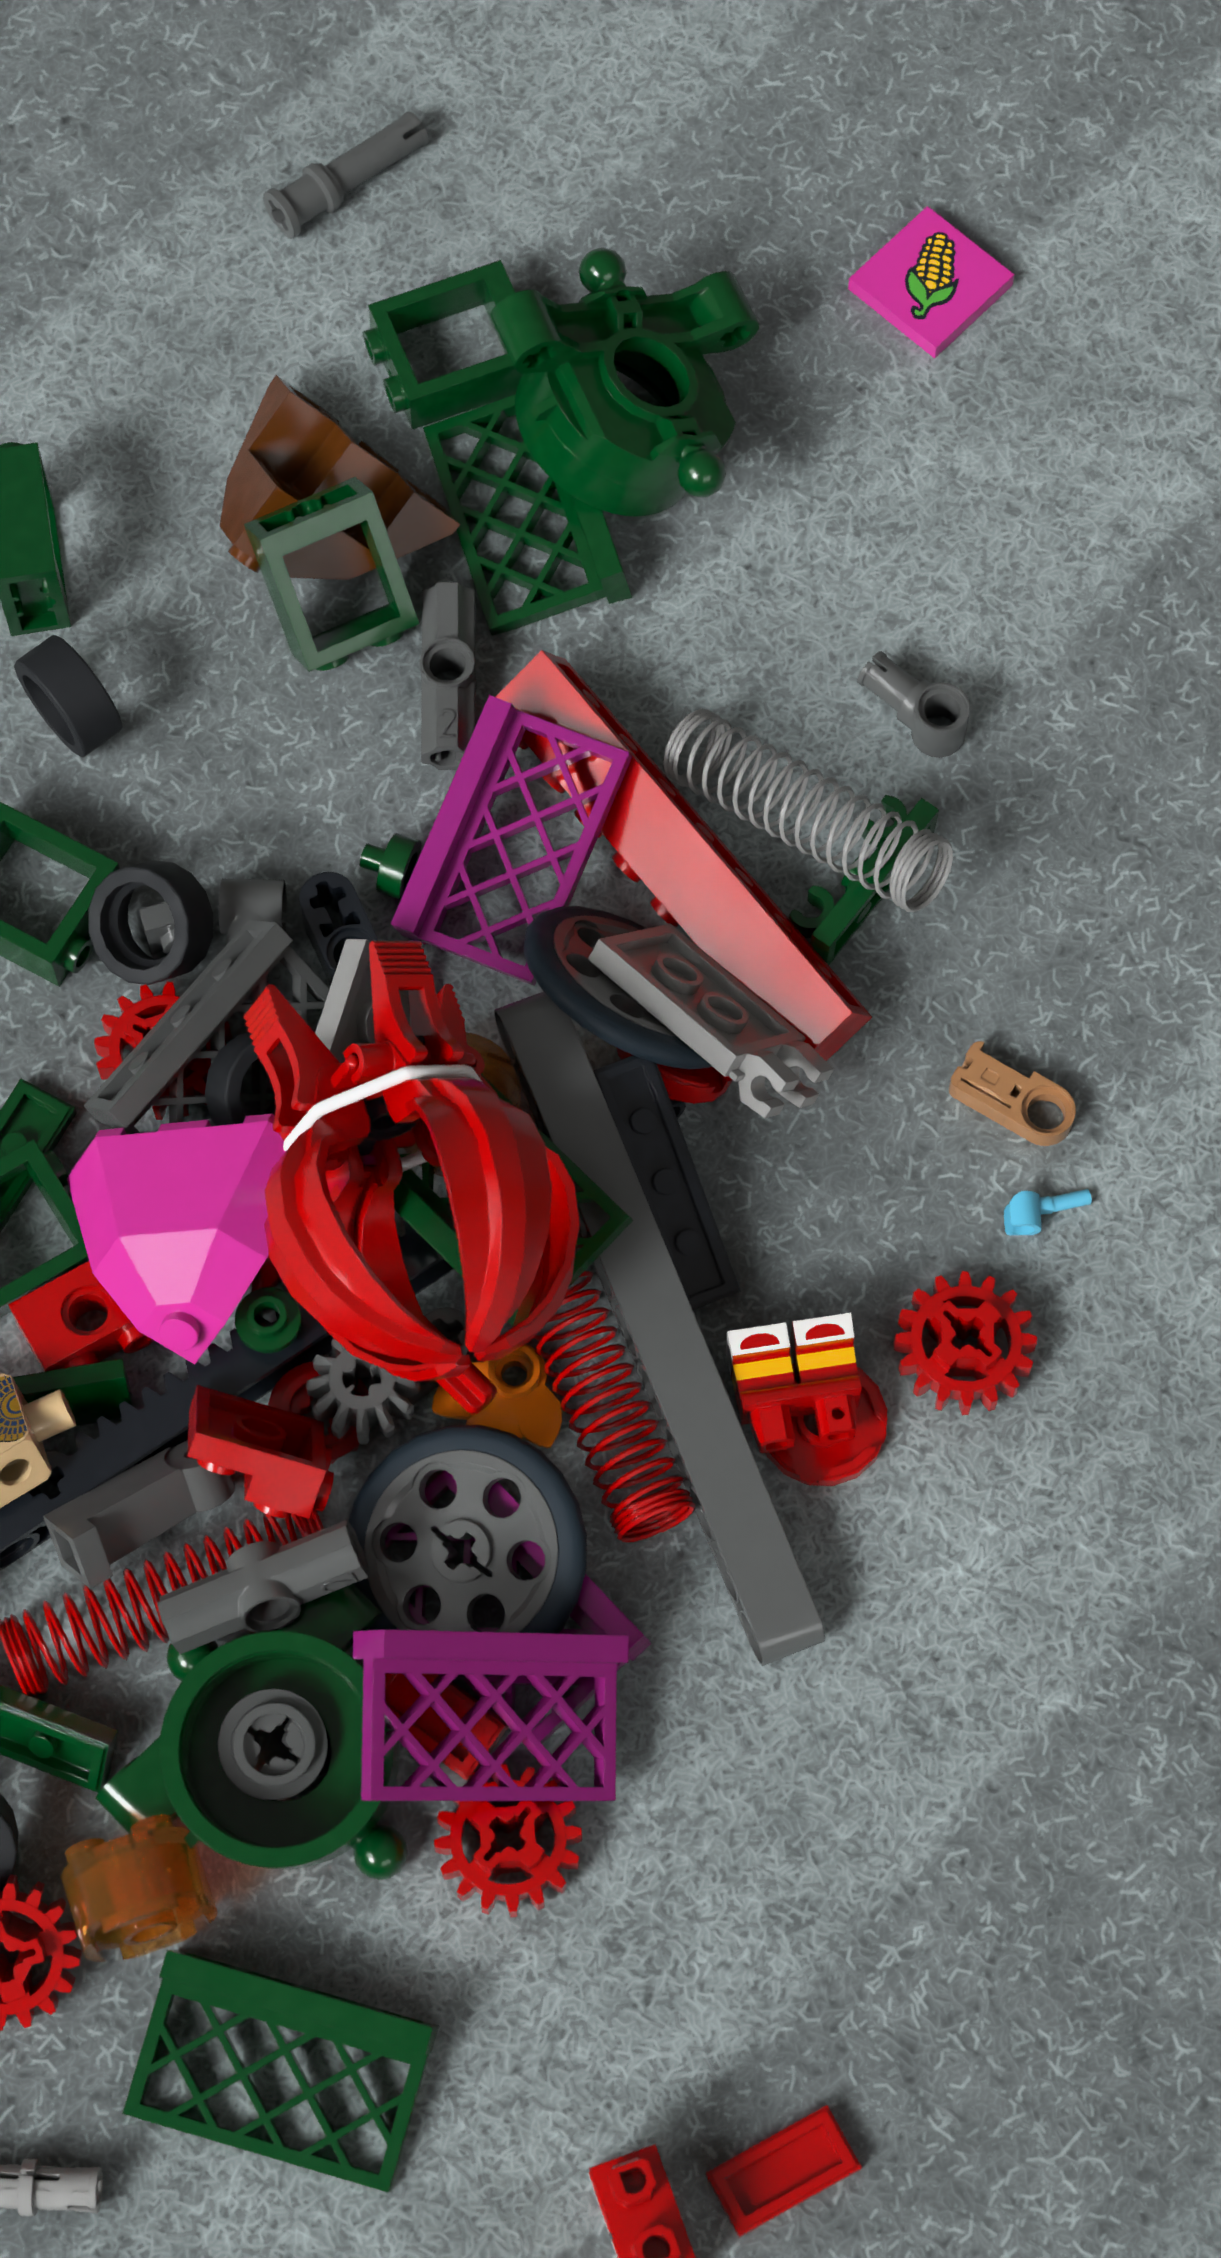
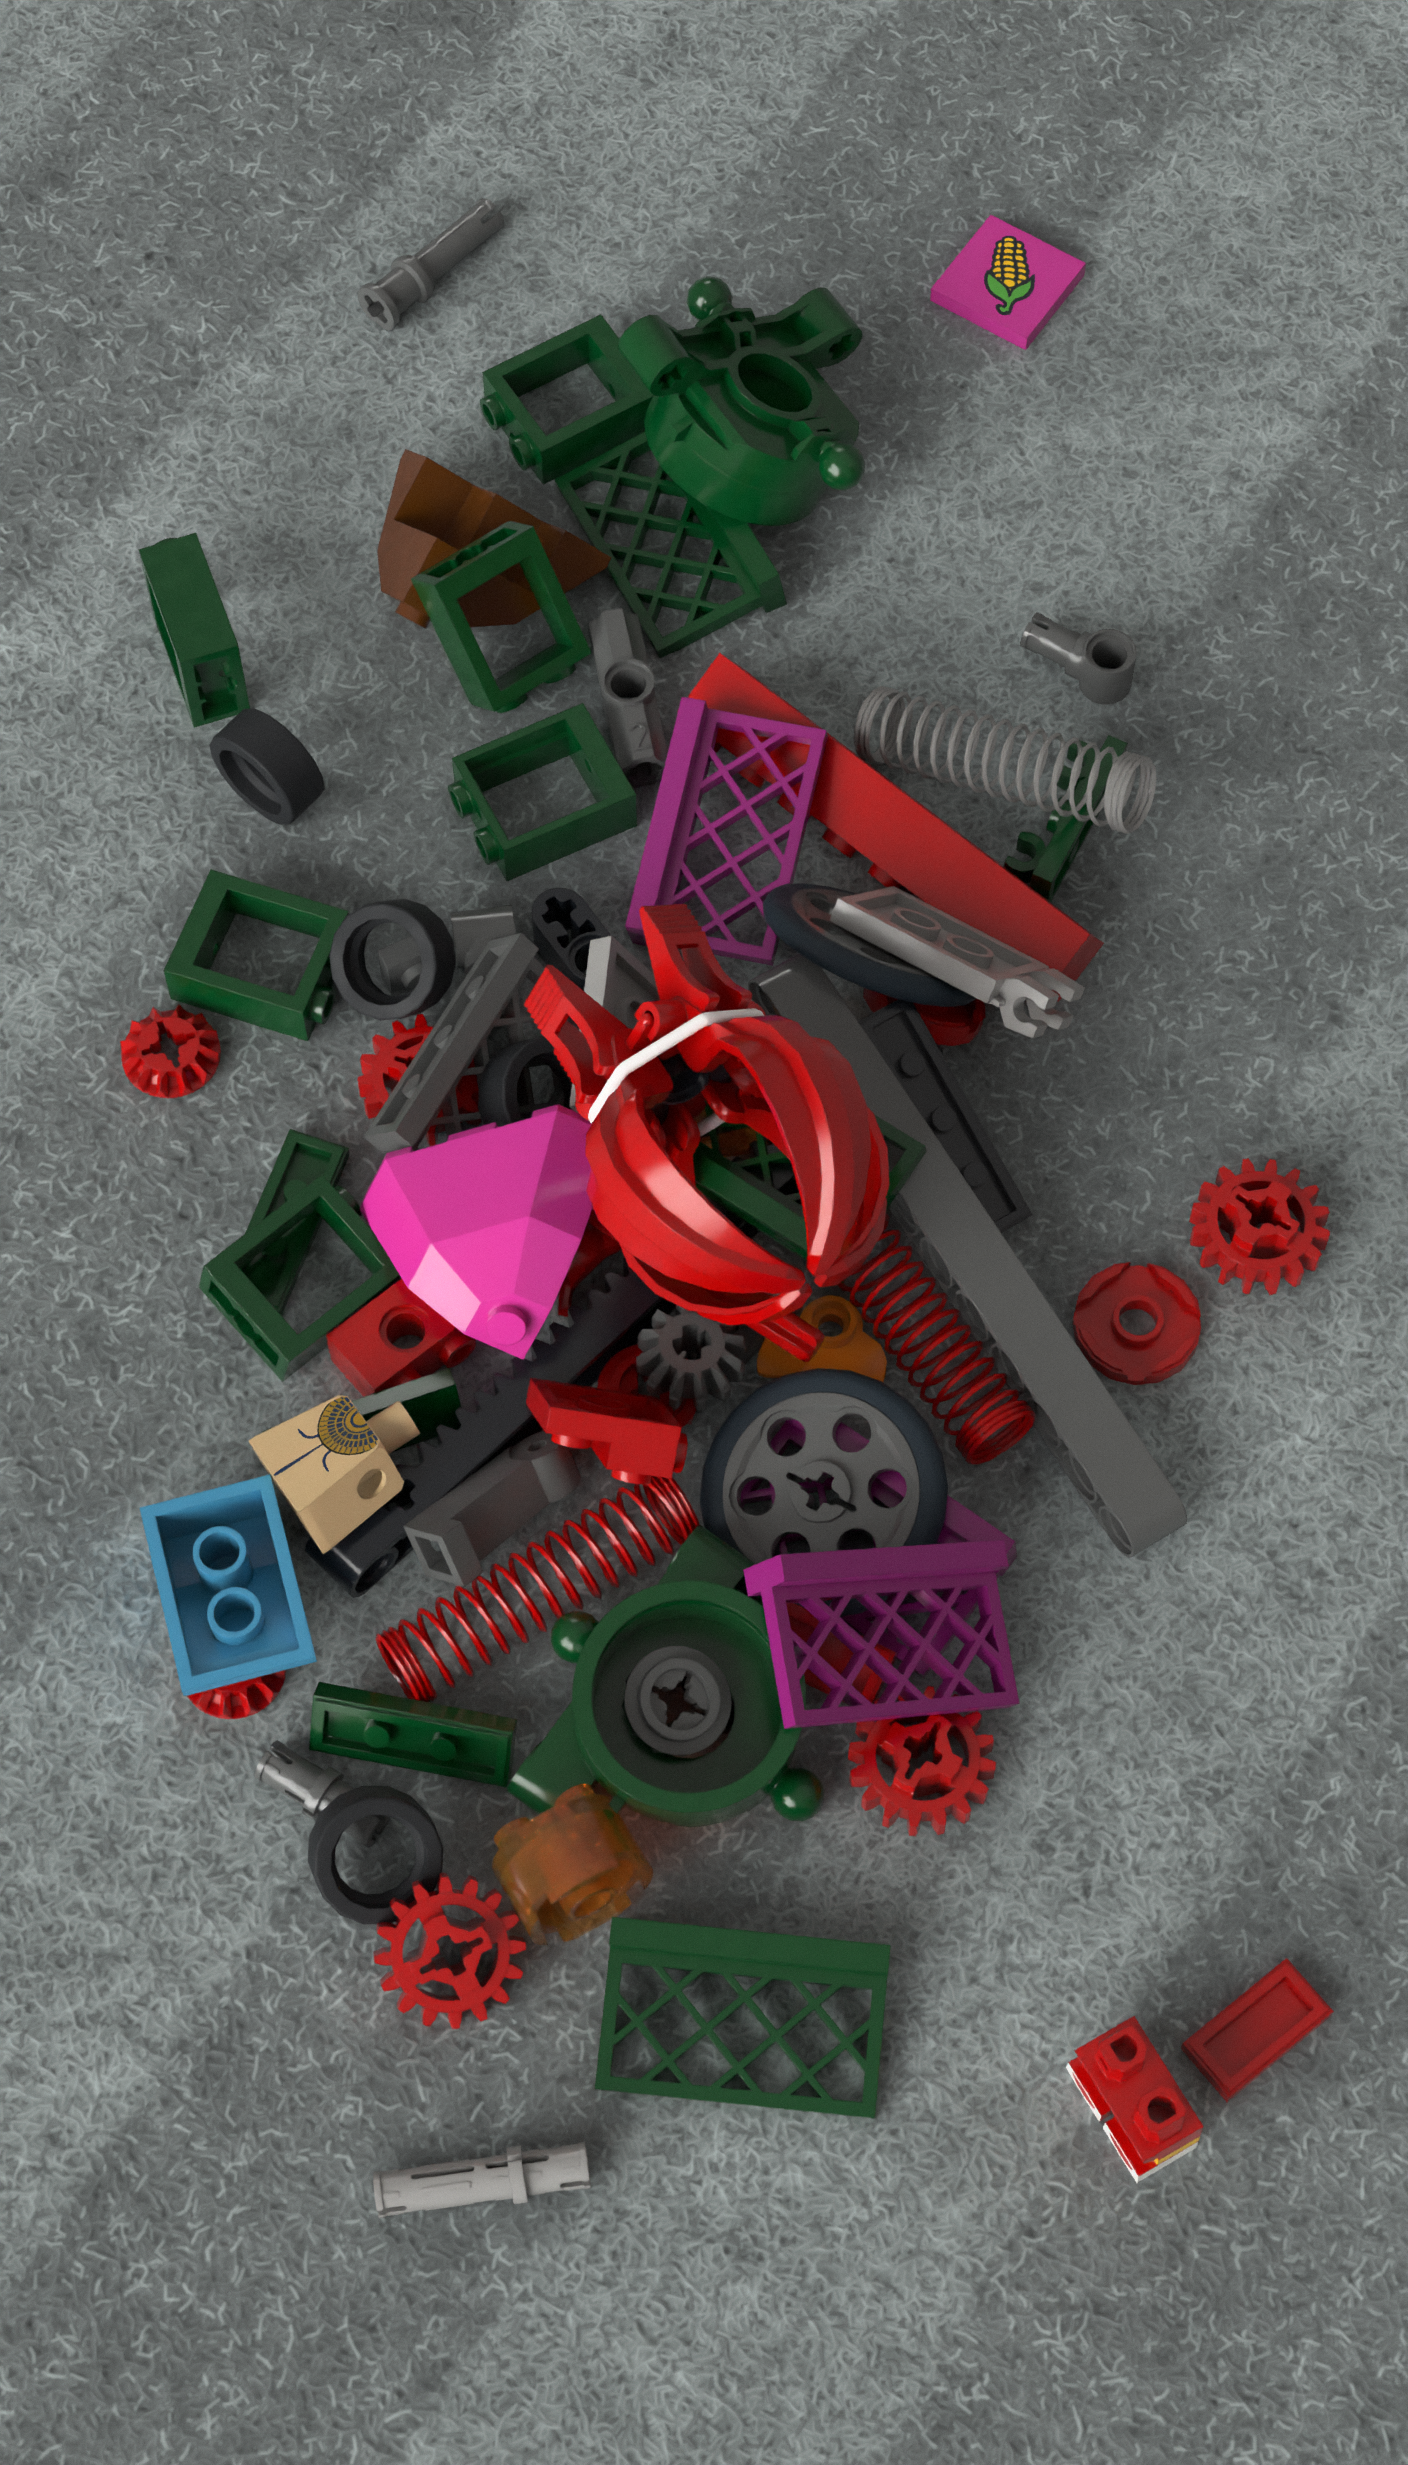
camera: 10 degrees left, 5 degrees down
(263, 1587) = (639, 1550): dark grey piece -> none
(270, 1338) = (587, 1322): dark green plate -> none
(328, 719) = (524, 751): none -> dark green window
(392, 864) = (613, 876): dark green tile -> none
(824, 1376) = (1106, 1278): red hips -> none
(1007, 1095) = (1246, 996): medium nougat piece -> none
(1025, 1209) = (1288, 1096): medium azure hand -> none

